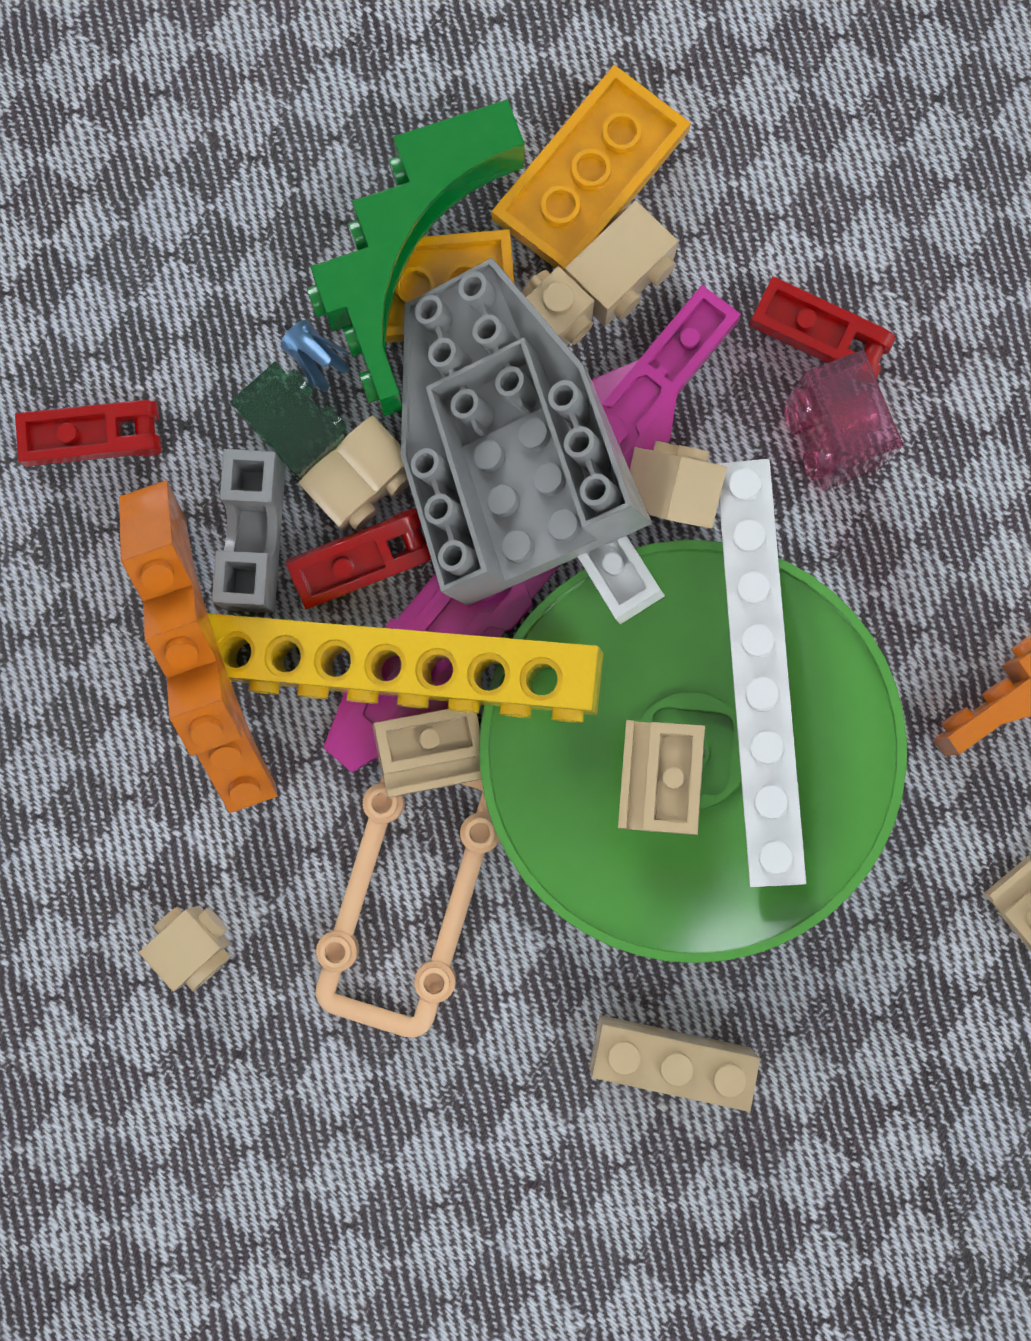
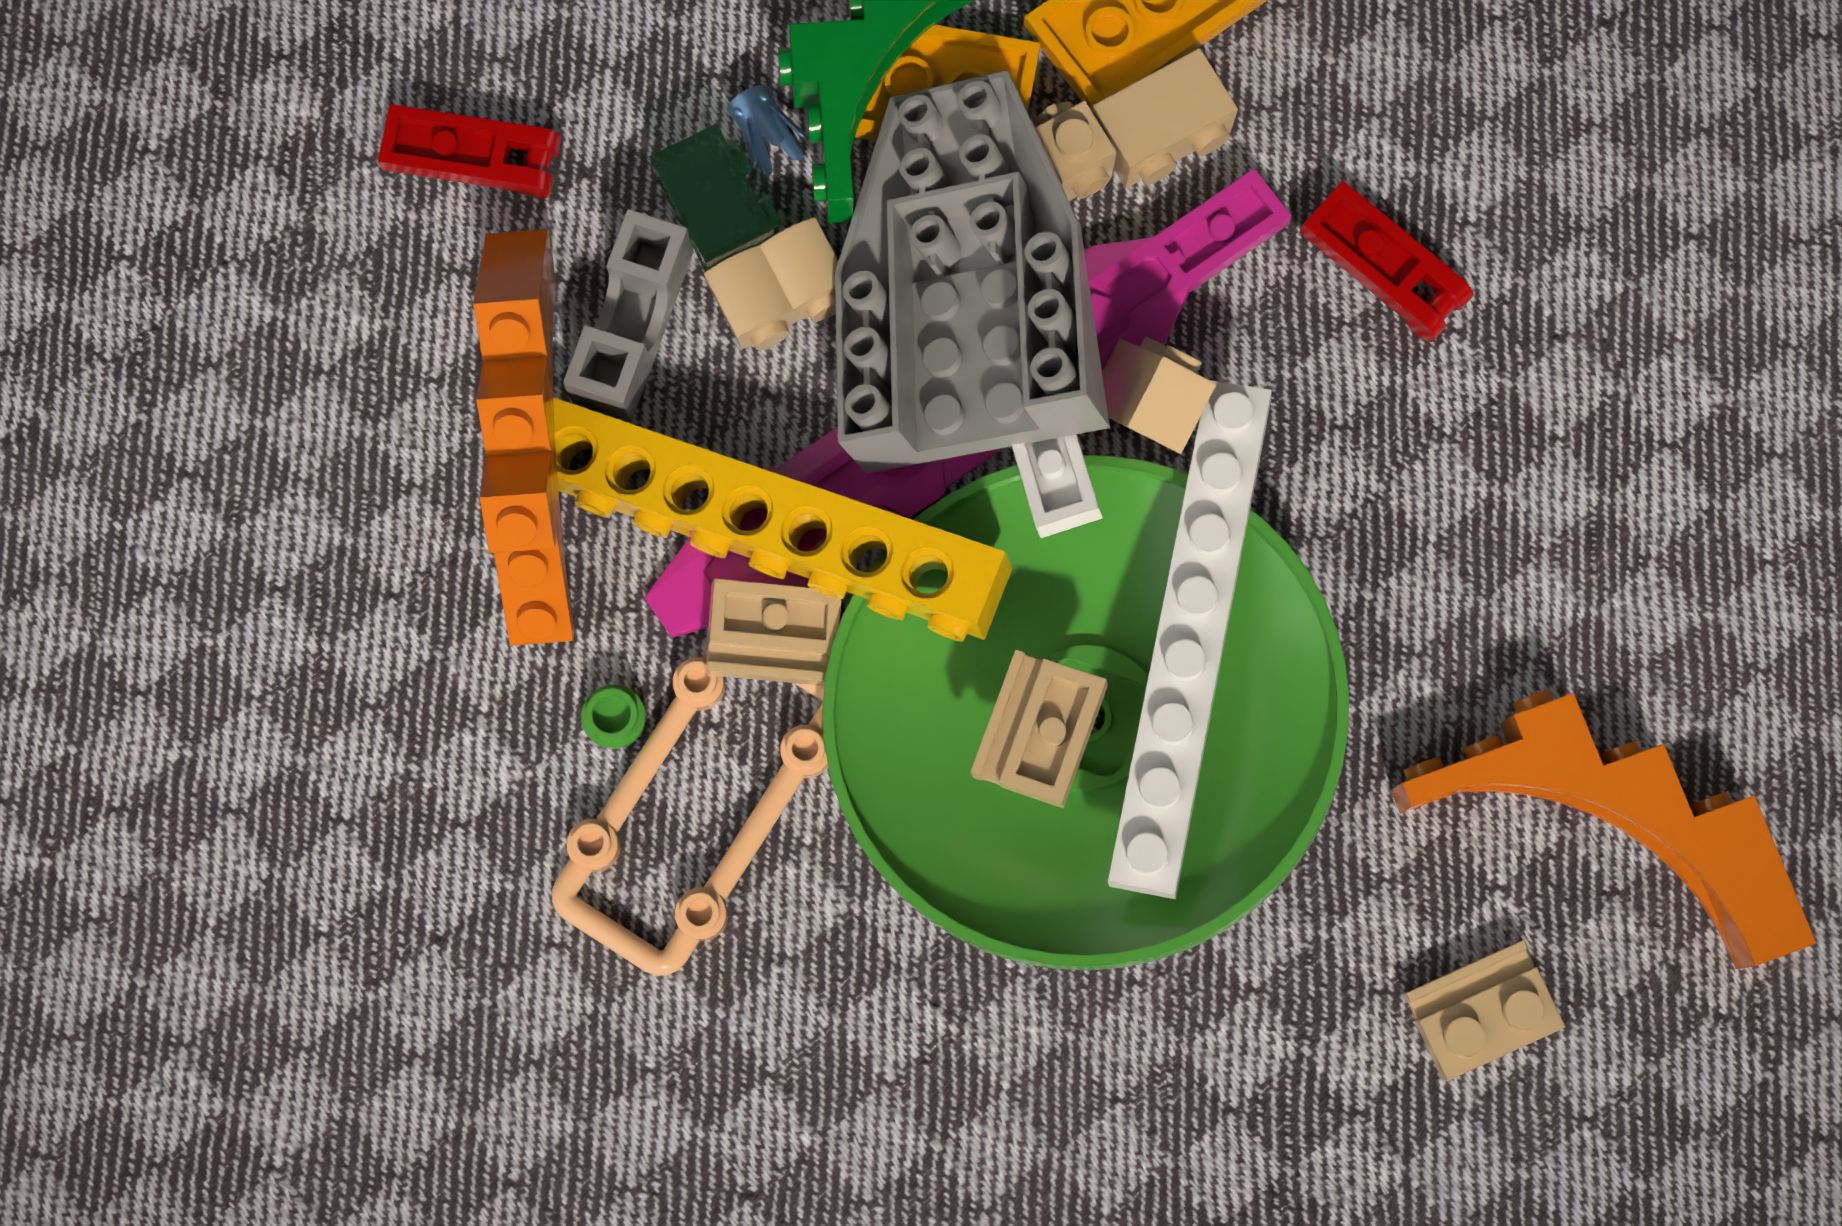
camera: 10 degrees right, 5 degrees down
(187, 947) = (415, 789): tan brick -> none
(325, 847) = (613, 716): none -> bright green plate
(358, 559) = (749, 384): red plate -> none
(674, 1063) = (963, 1086): tan brick -> none
(842, 421) = (1375, 374): clear pink brick -> none

